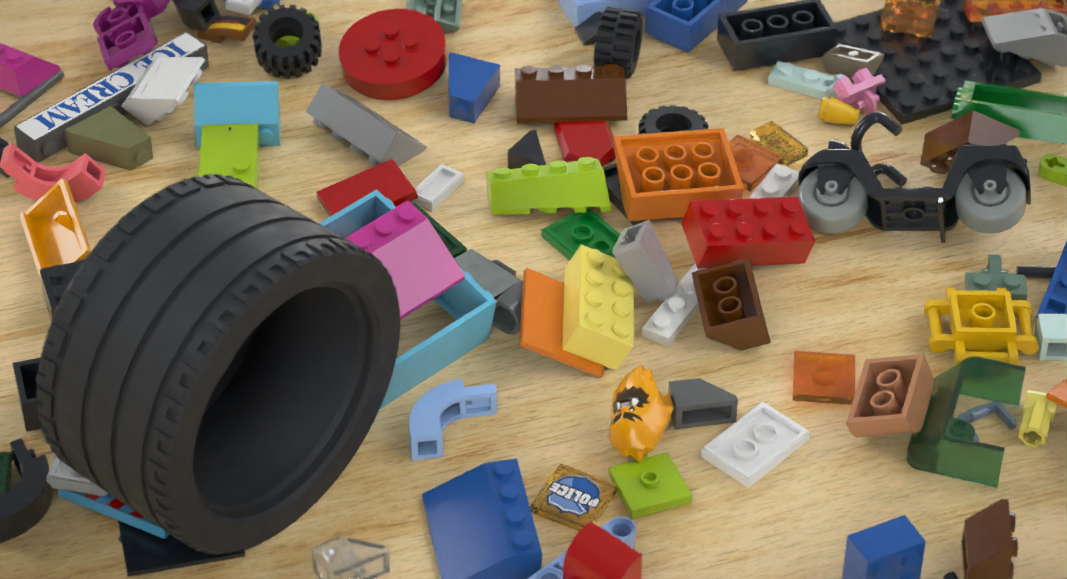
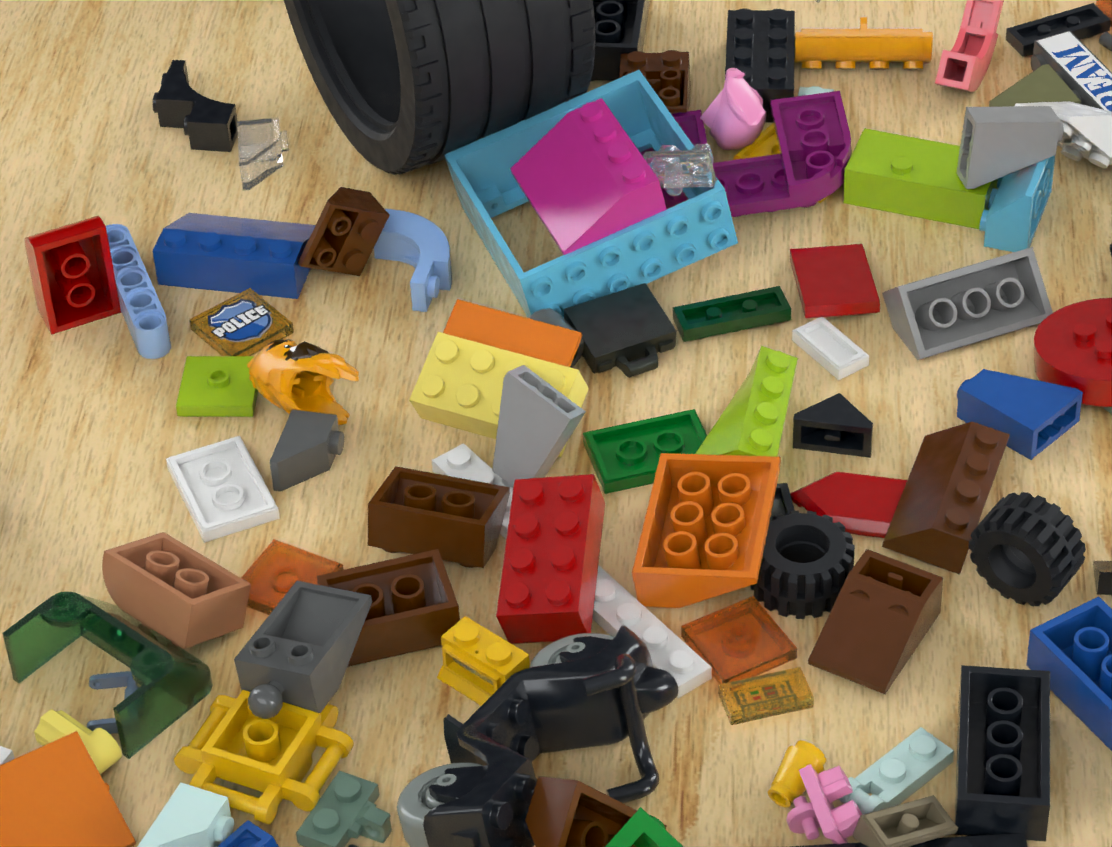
camera: 115 degrees right, 0 degrees up
(230, 94) = (1005, 141): none -> light grey slope
(368, 196) = (682, 168): none -> clear hips
(463, 438) = (345, 233): none -> reddish brown slope
(710, 97) = (877, 621): none -> reddish brown slope
(837, 295) = (408, 606): none -> reddish brown slope
(845, 252) = (478, 660): none -> yellow window
(914, 303) = (302, 649): none -> dark grey slope

